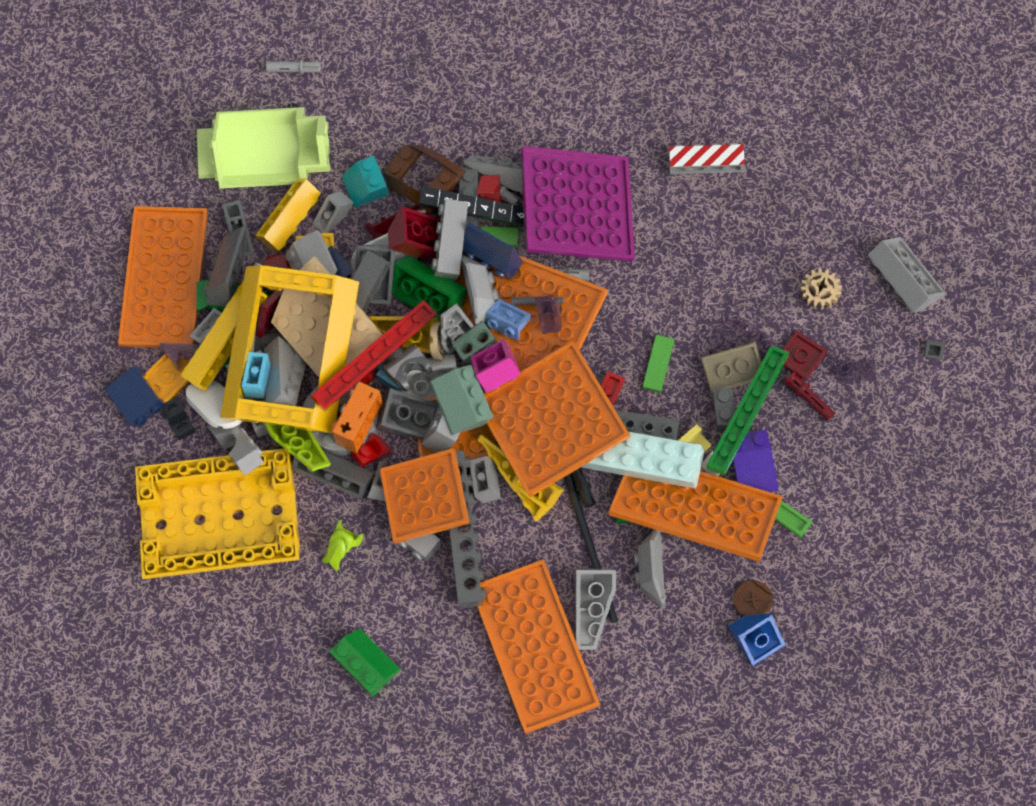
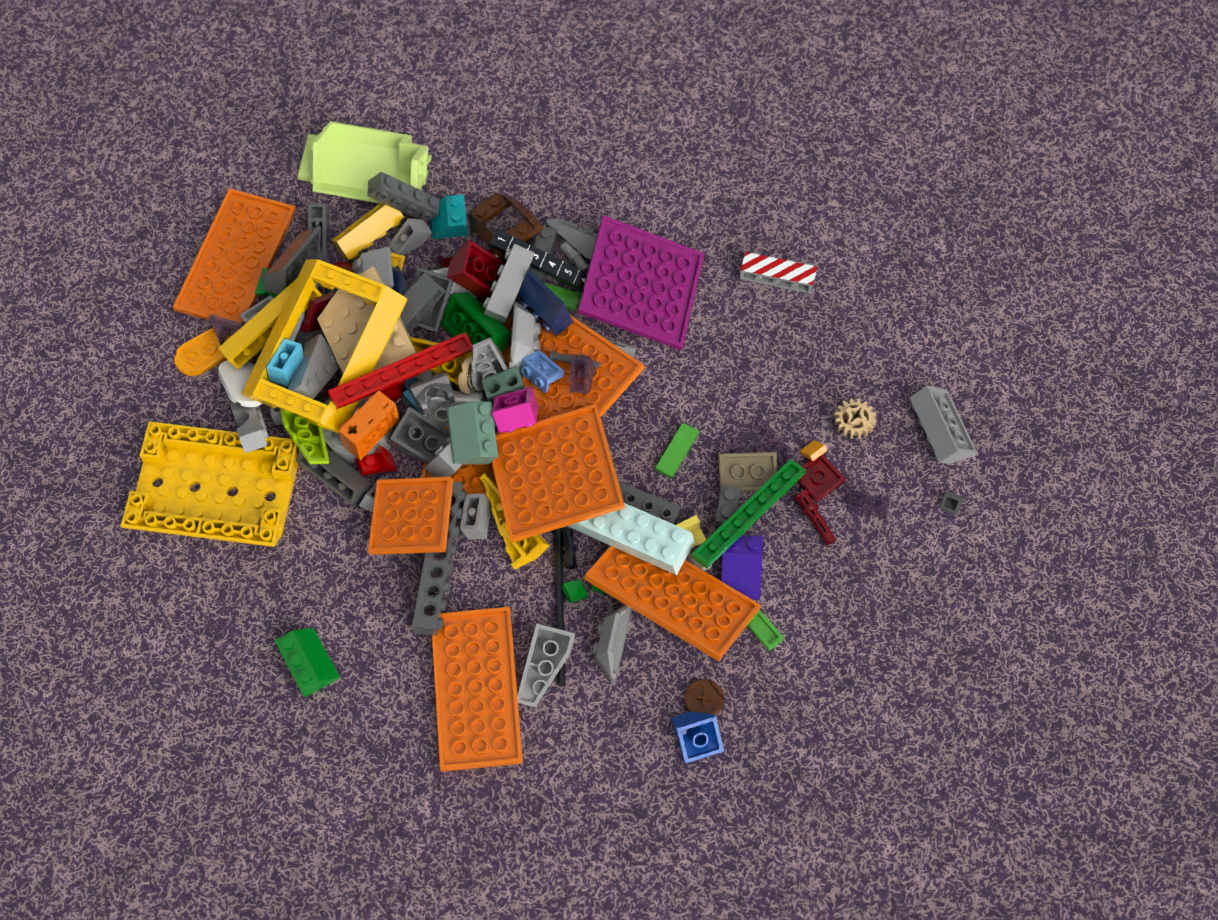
camera: 10 degrees right, 5 degrees down
(135, 396) = (171, 358): dark blue panel -> none
(178, 418) = (206, 389): black slope -> none
(293, 66) = (415, 100): light grey axle -> none
(316, 174) = (403, 197): none -> dark grey brick
(340, 543) = (319, 542): lime hair -> none
(422, 547) = (397, 564): light grey brick -> none
(490, 187) = (563, 249): red slope -> none
(600, 527) = (574, 591): none -> green tile
(612, 386) = (625, 461): red plate -> none
(789, 330) = (813, 450): none -> light orange tile

